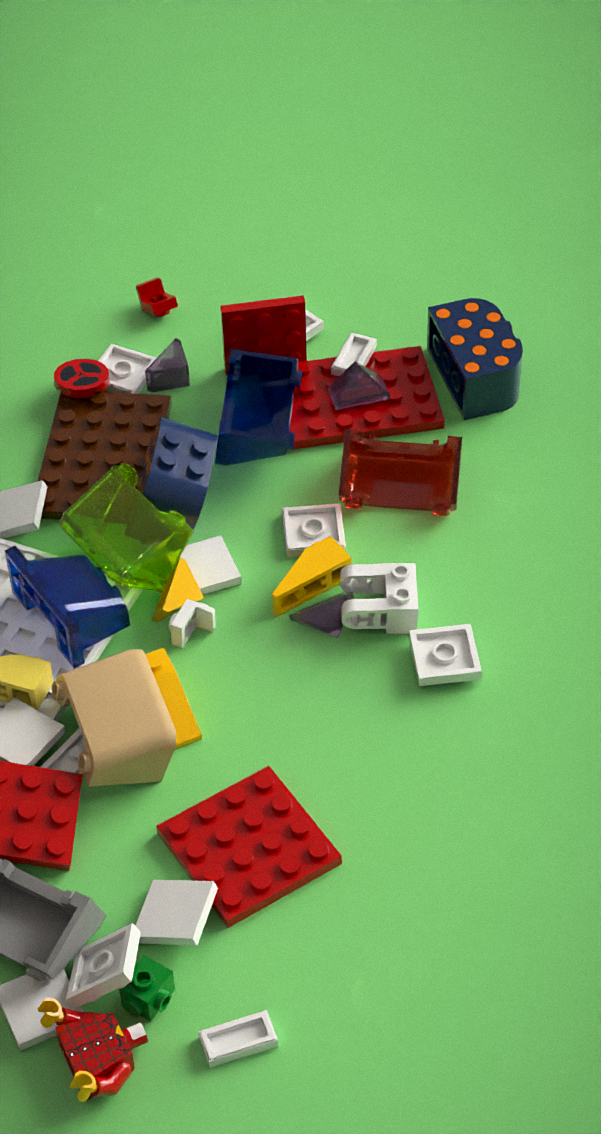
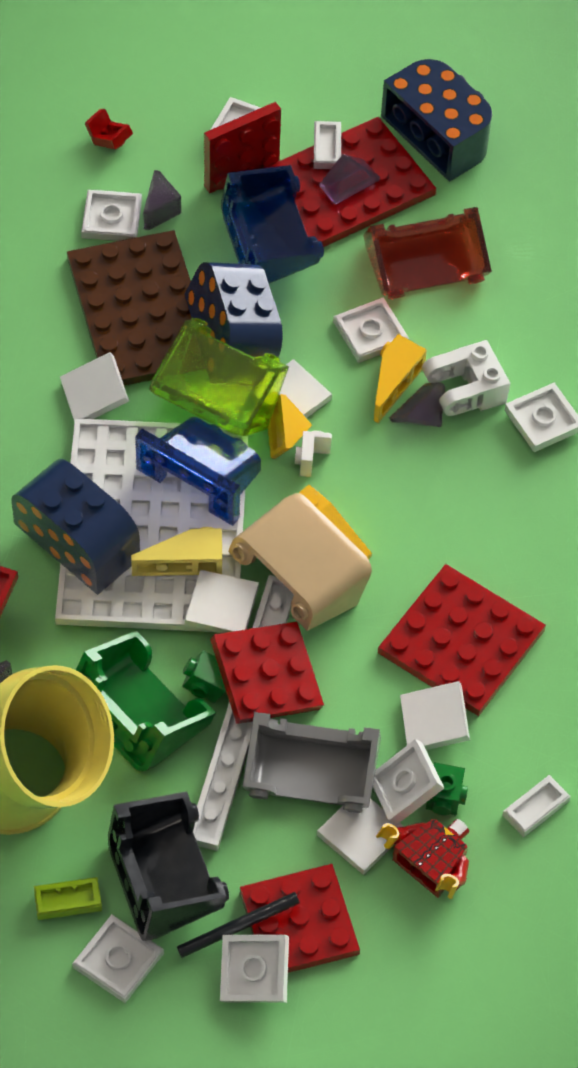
camera: 25 degrees left, 10 degrees up
(81, 378) = (84, 235): red tile -> none

